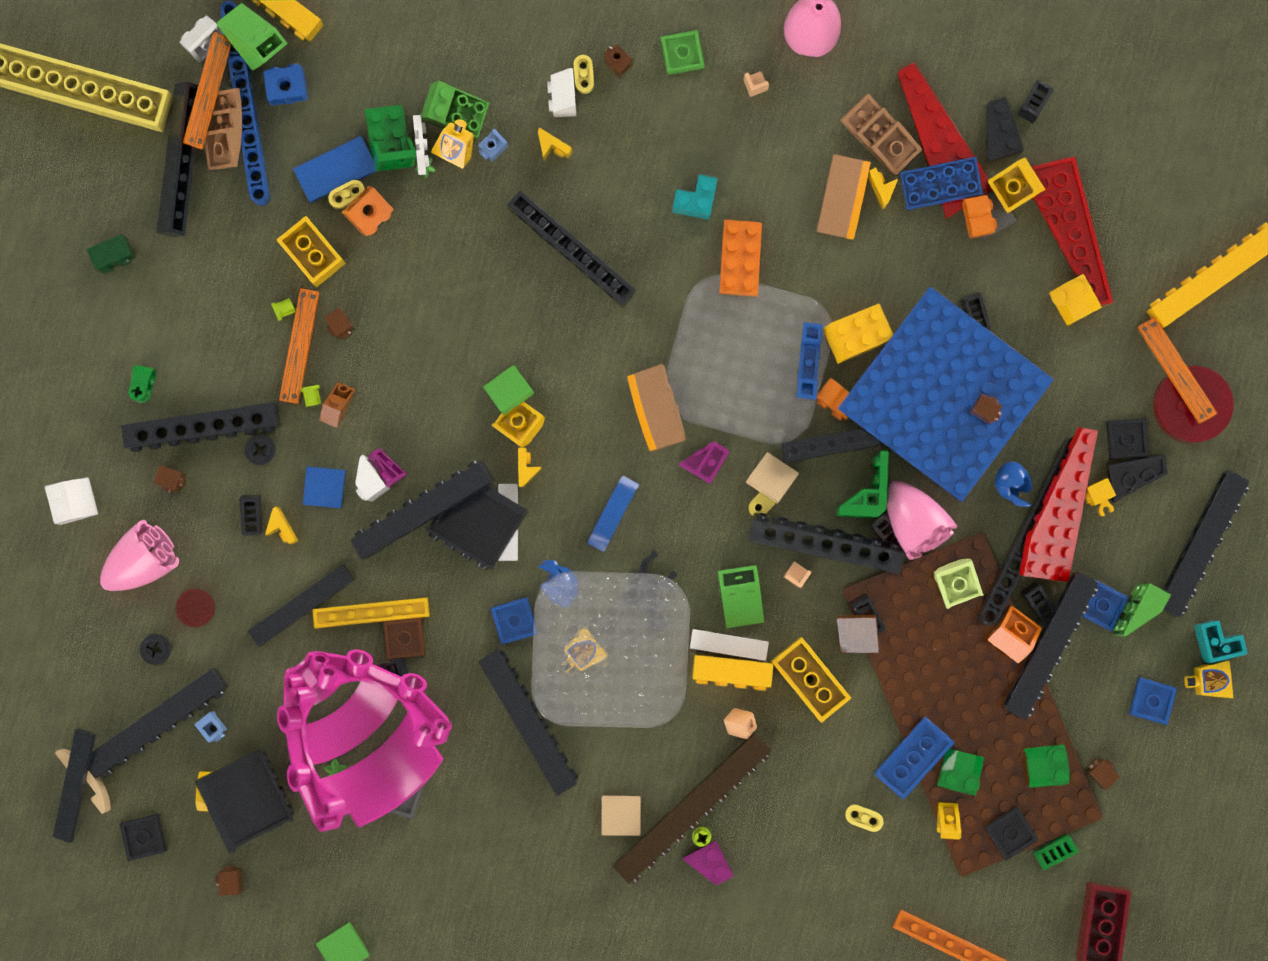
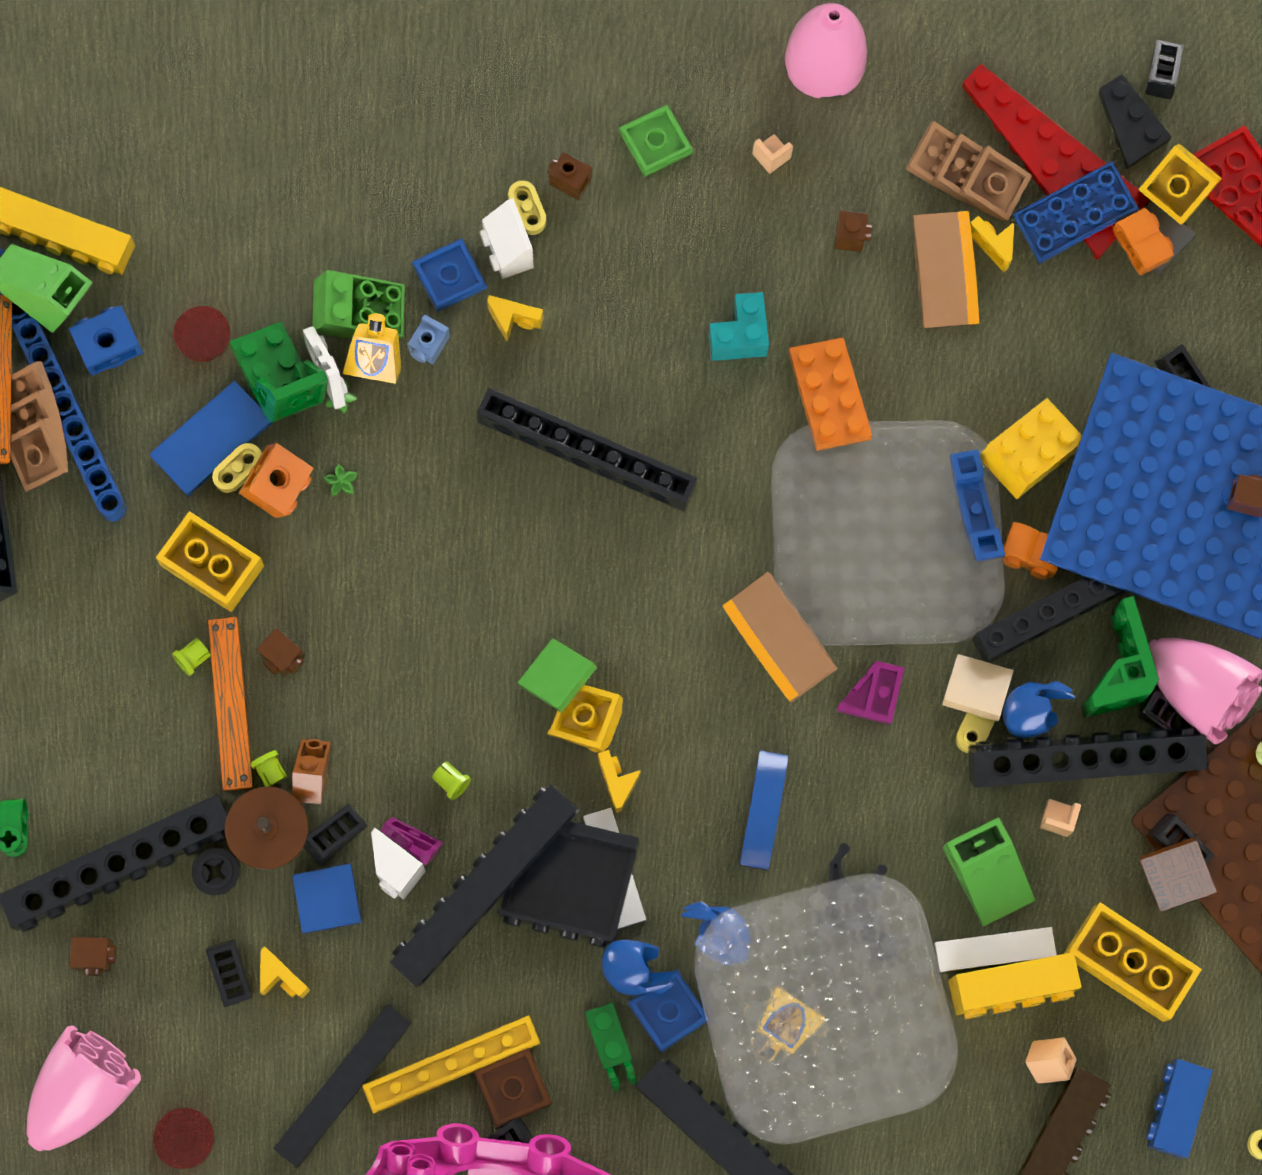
camera: 20 degrees left, 10 degrees down
(297, 433) = (266, 828): none -> reddish brown piece
(330, 445) = (331, 849): none -> black slope
(349, 97) = (202, 333): none -> clear red tile
(410, 221) = (341, 481): none -> bright green plant
(422, 436) = (451, 780): none -> lime bush
(472, 630) = (610, 1043): none -> green hinge
(496, 586) = (627, 968): none -> blue helmet
(520, 105) = (449, 275): none -> blue tile
(790, 153) = (852, 231): none -> reddish brown brick
(798, 502) = (1028, 713): none -> blue helmet
(809, 776) = (1178, 1108): none -> blue brick

